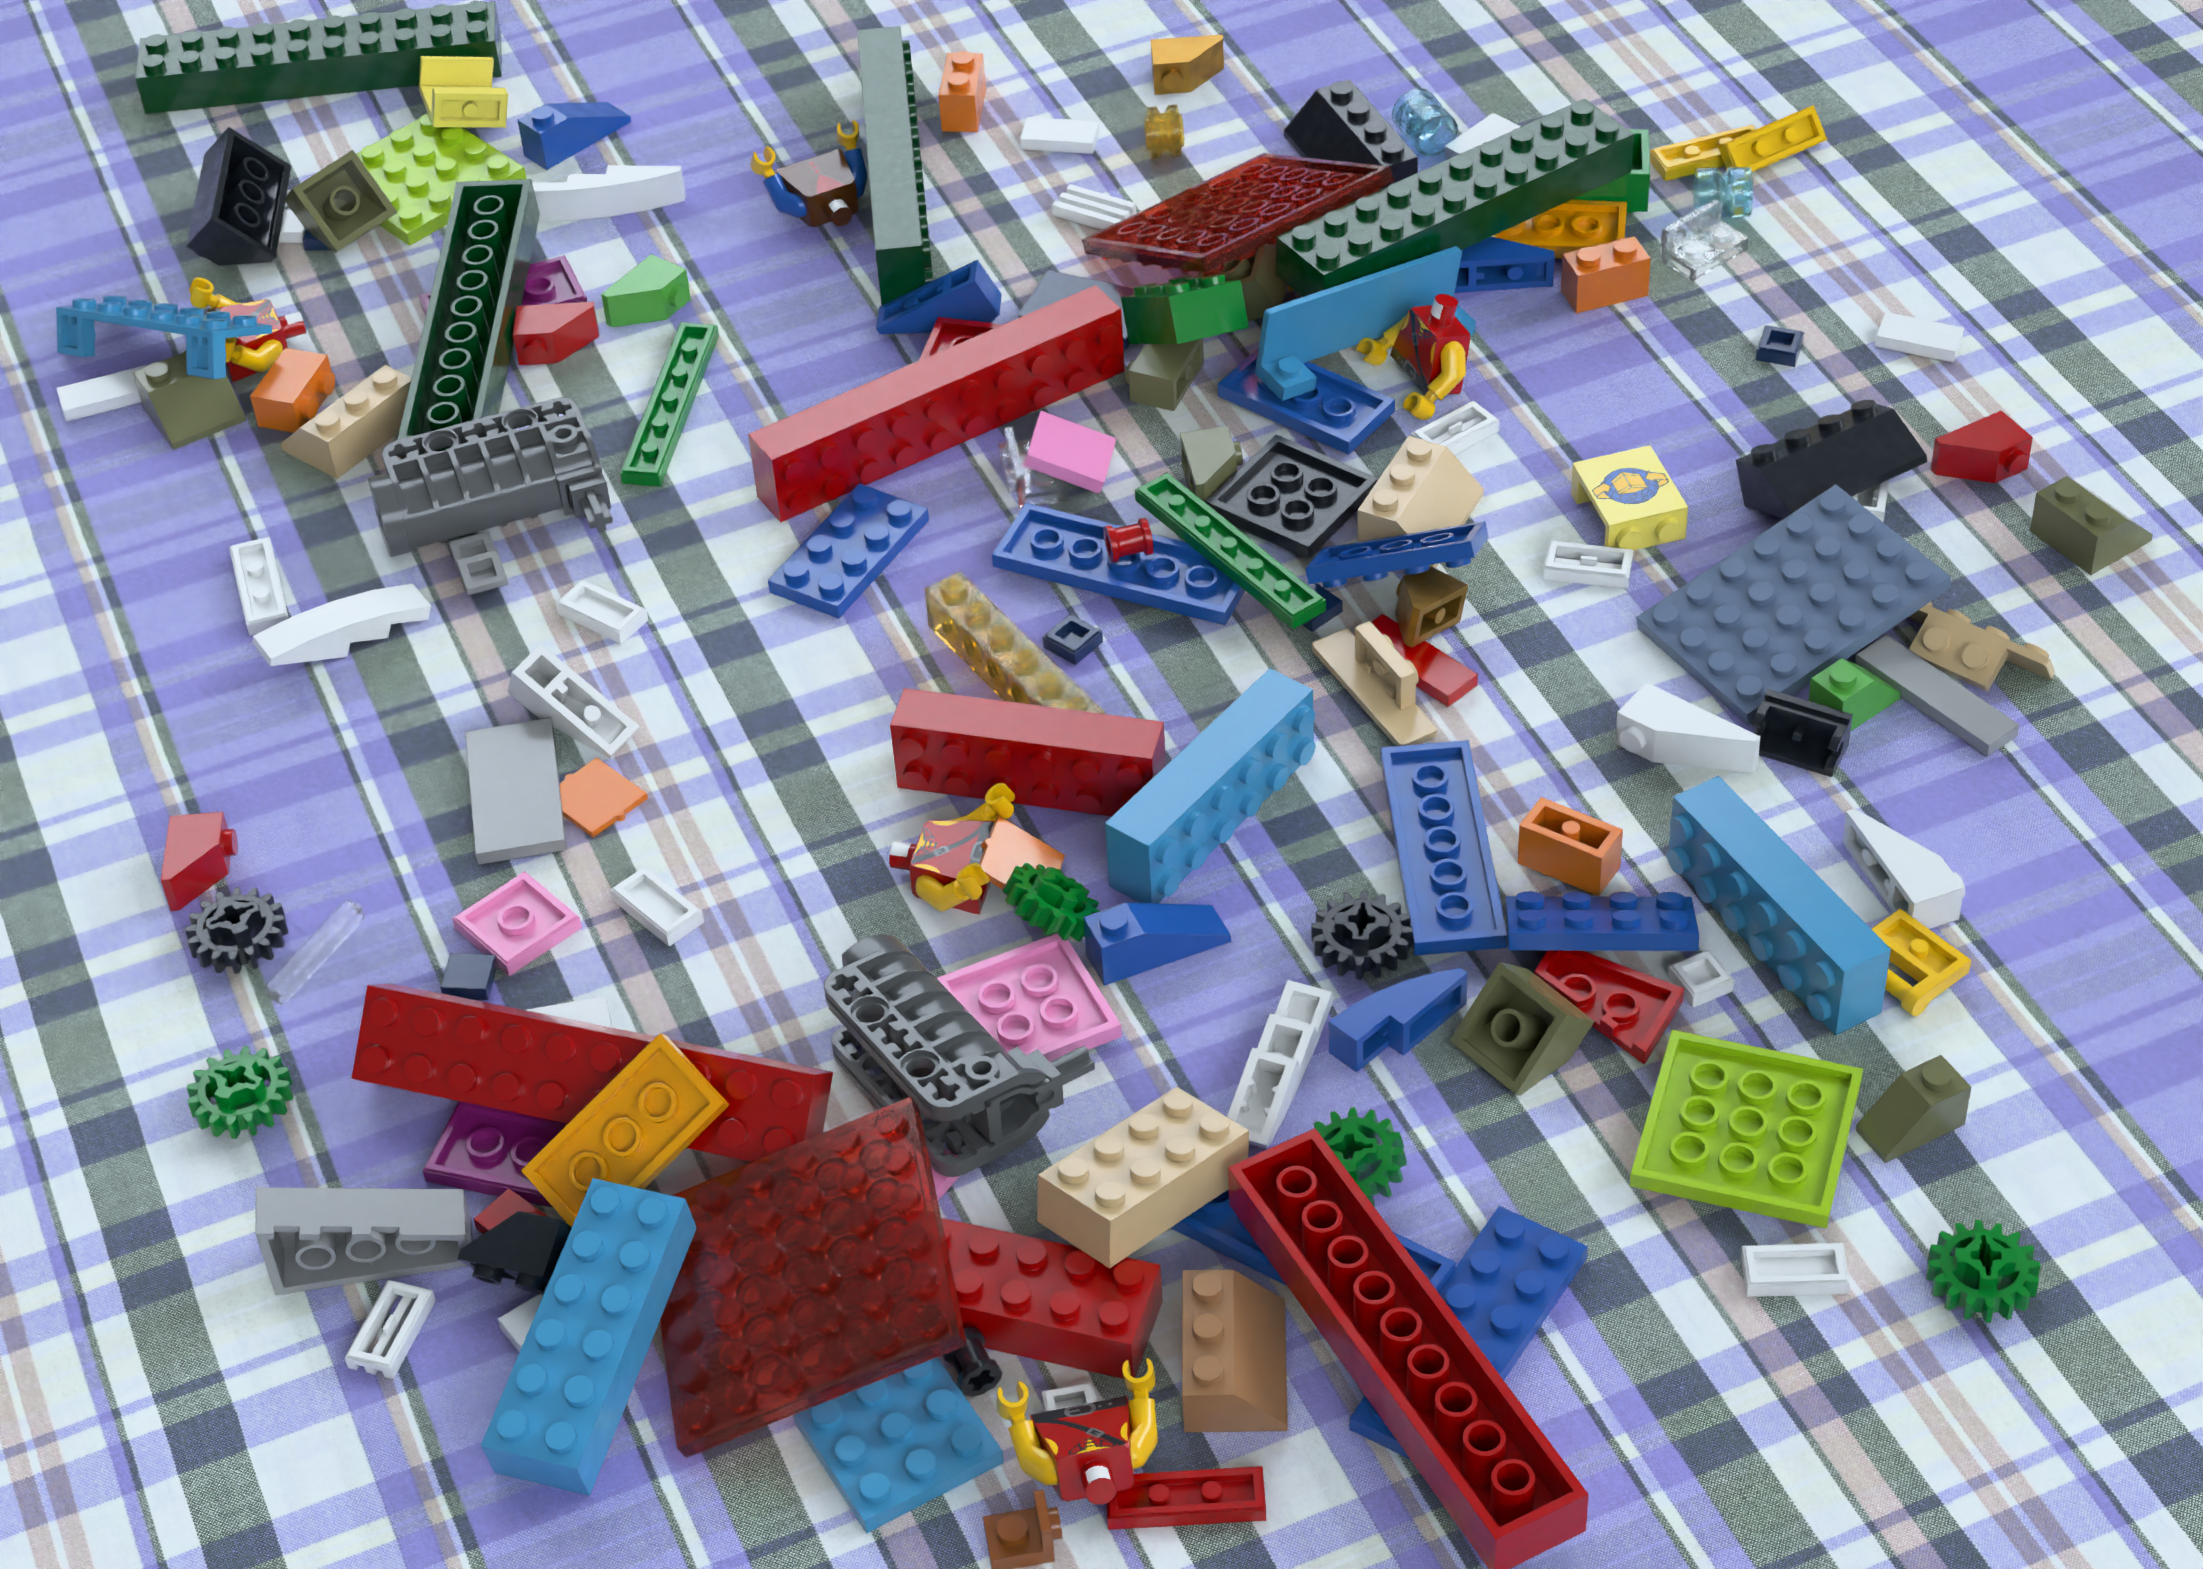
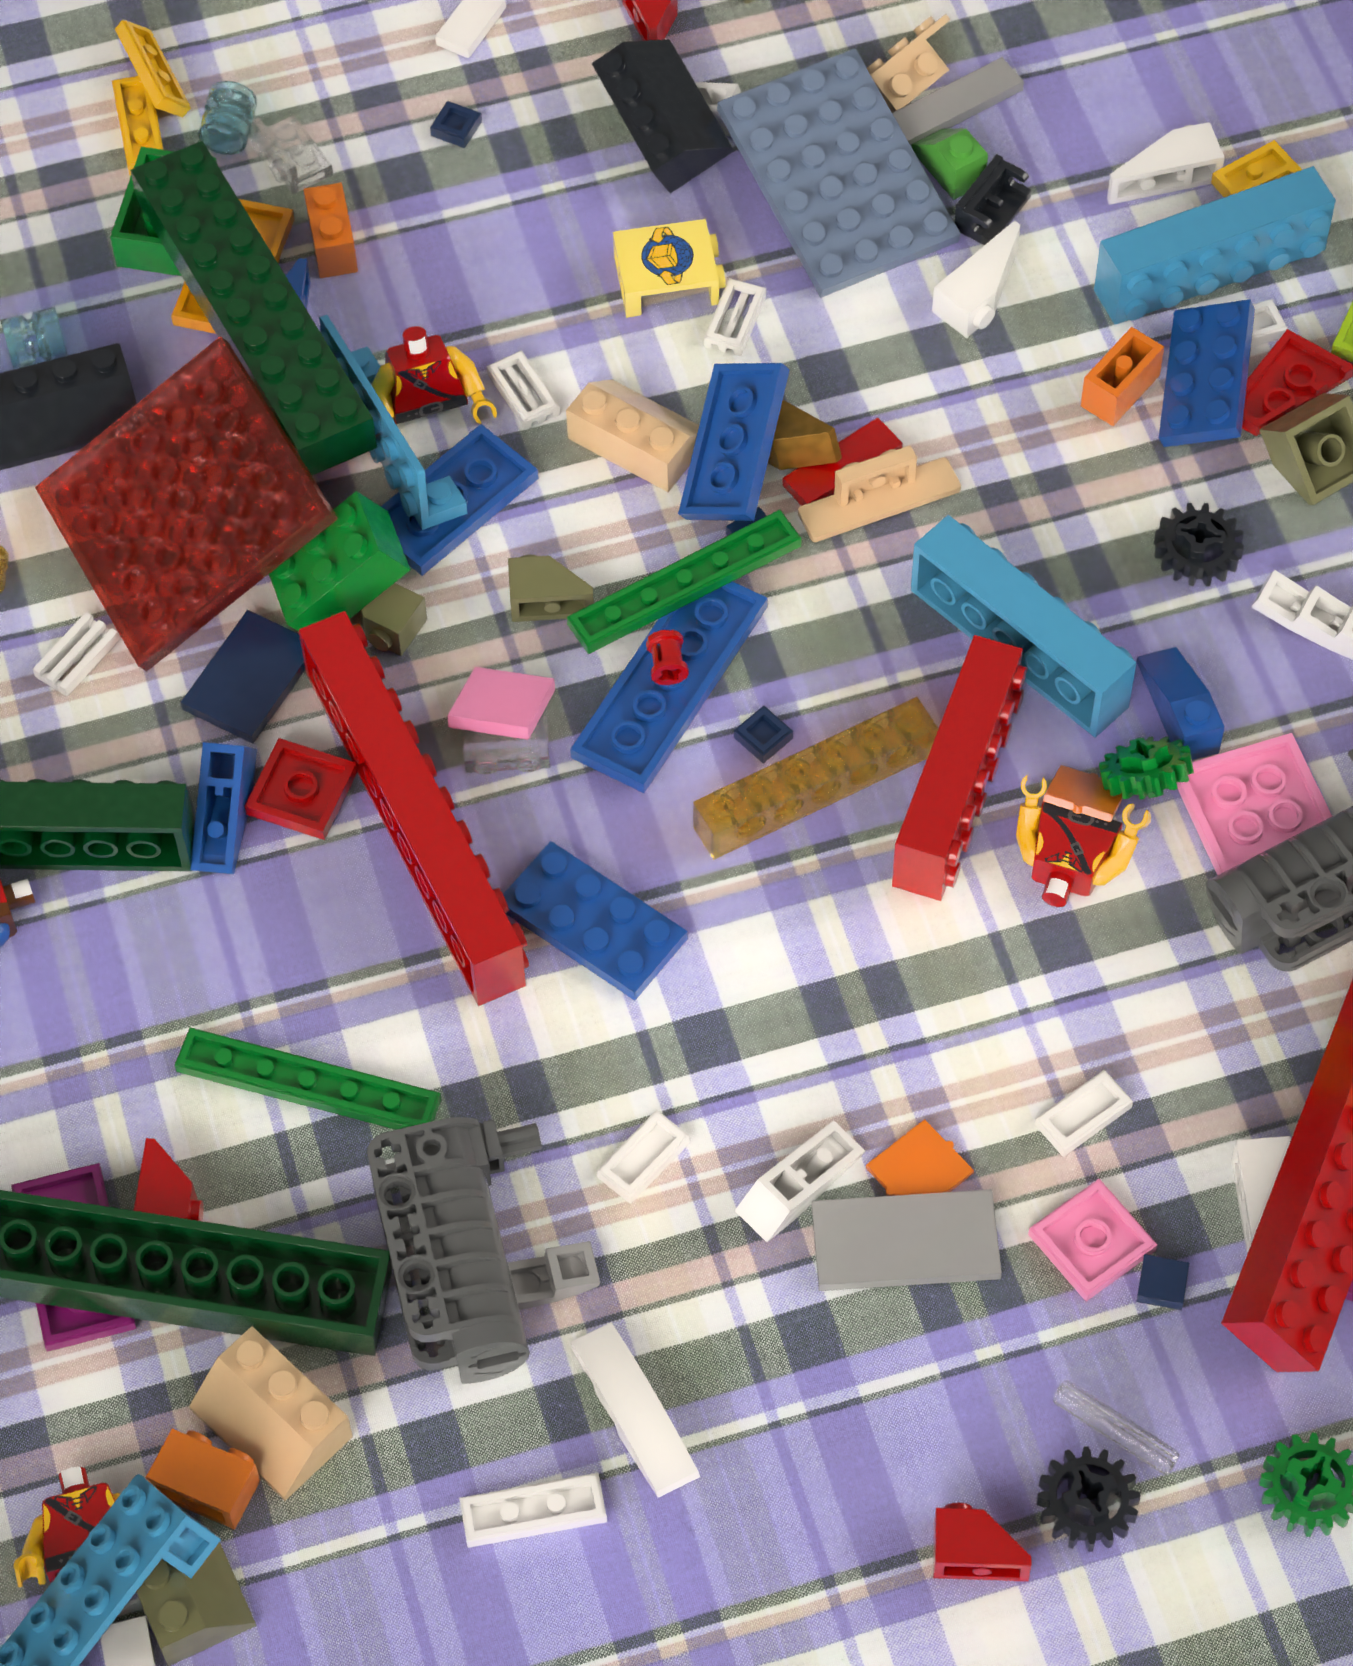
camera: 85 degrees left, 15 degrees up
(646, 293) = (116, 1090): bright green slope -> none
(1292, 496) = (600, 526): black plate -> none
(1396, 1017) = (1299, 532): blue slope -> none
(1442, 848) = (1091, 473): plate -> none
(1482, 132) = (73, 306): white tile -> none

